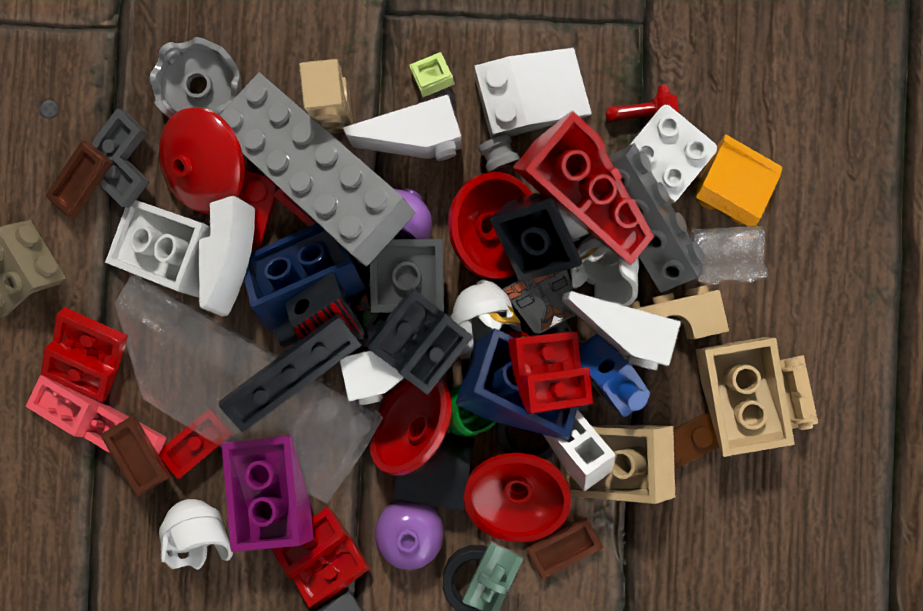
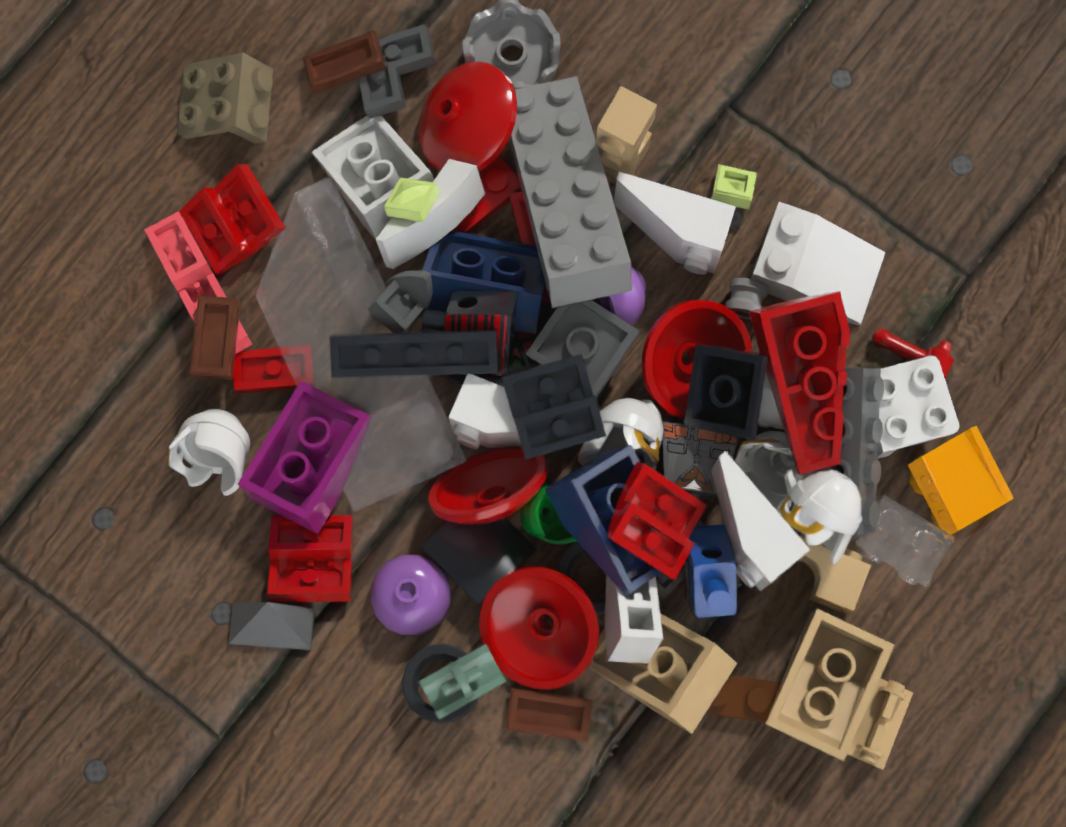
camera: 40 degrees right, 10 degrees down
(204, 257) = (411, 199): none -> yellowish green tile
(252, 337) = (403, 300): none -> dark grey tile
(670, 275) = (824, 510): none -> white helmet

